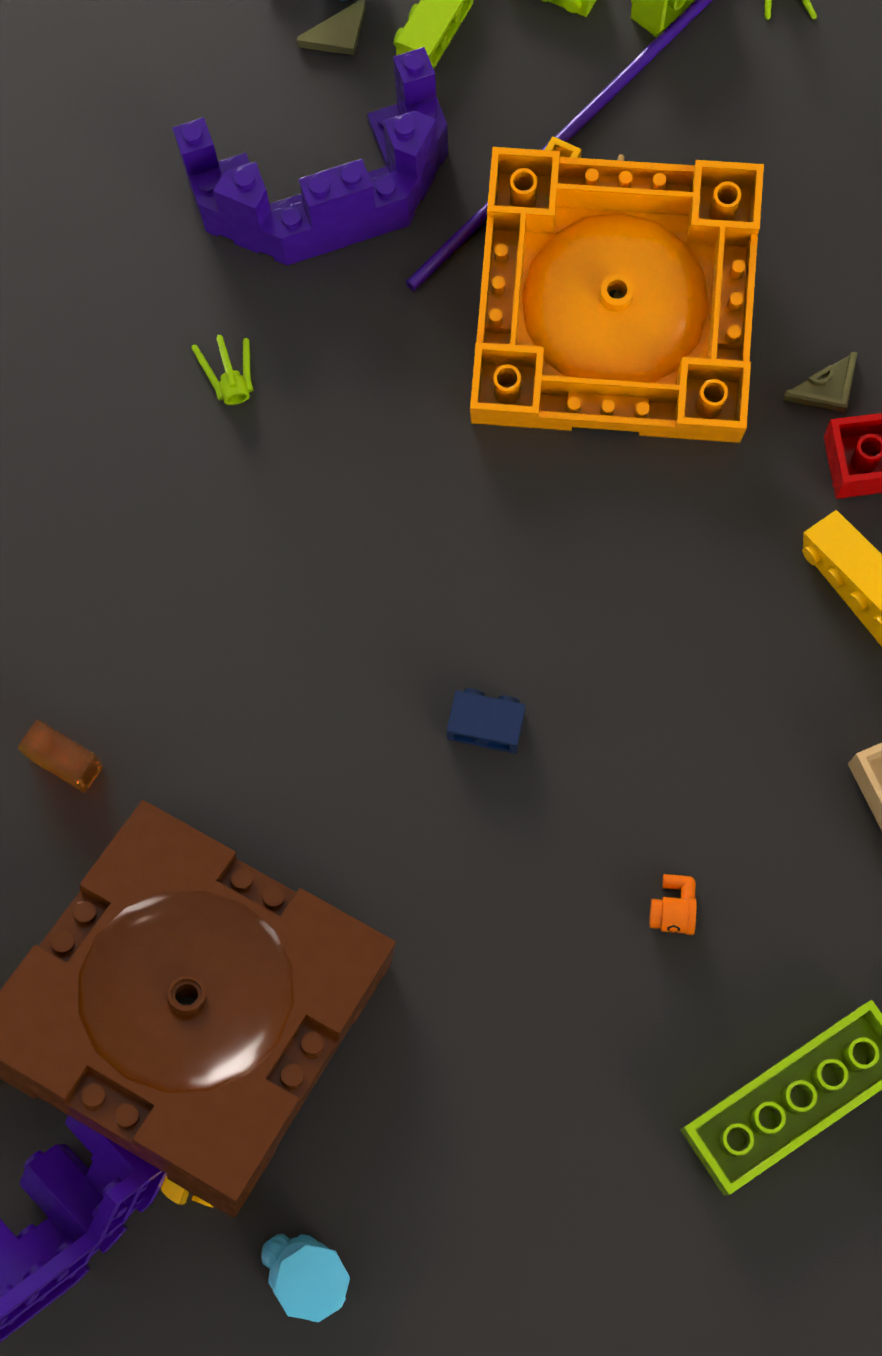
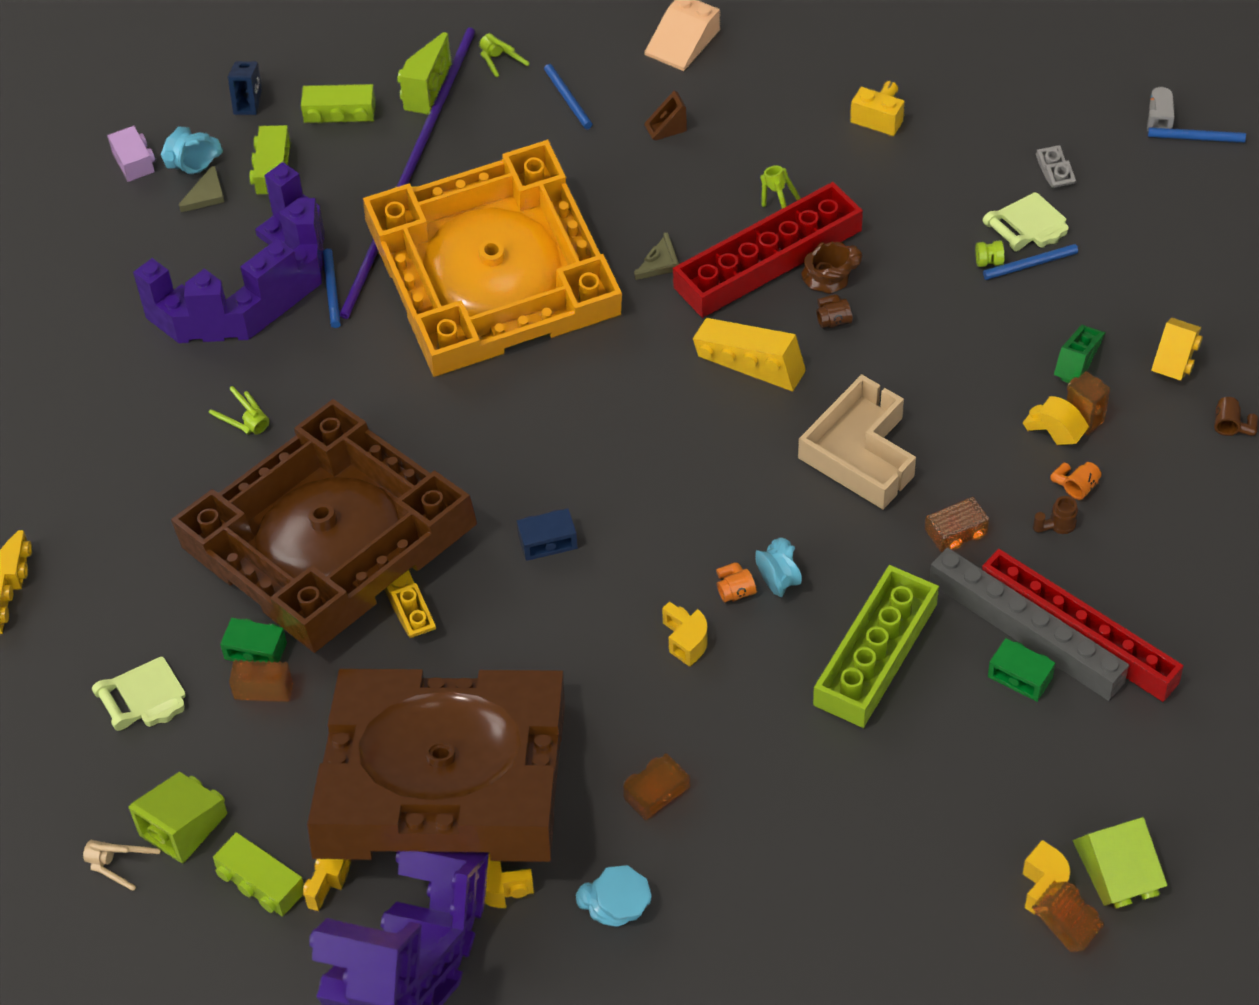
camera: 30 degrees left, 20 degrees down
(80, 698) = (253, 641): none -> green brick
(200, 651) = (324, 525): none -> reddish brown brick
(278, 721) = (410, 606): none -> yellow slope
(415, 239) = (331, 288): none -> blue bar
(432, 1144) = (655, 786): none -> clear orange brick
(583, 958) = (689, 635): none -> yellow brick
(740, 918) = (778, 566): none -> medium azure piece
(838, 89) = (567, 95): none -> blue bar

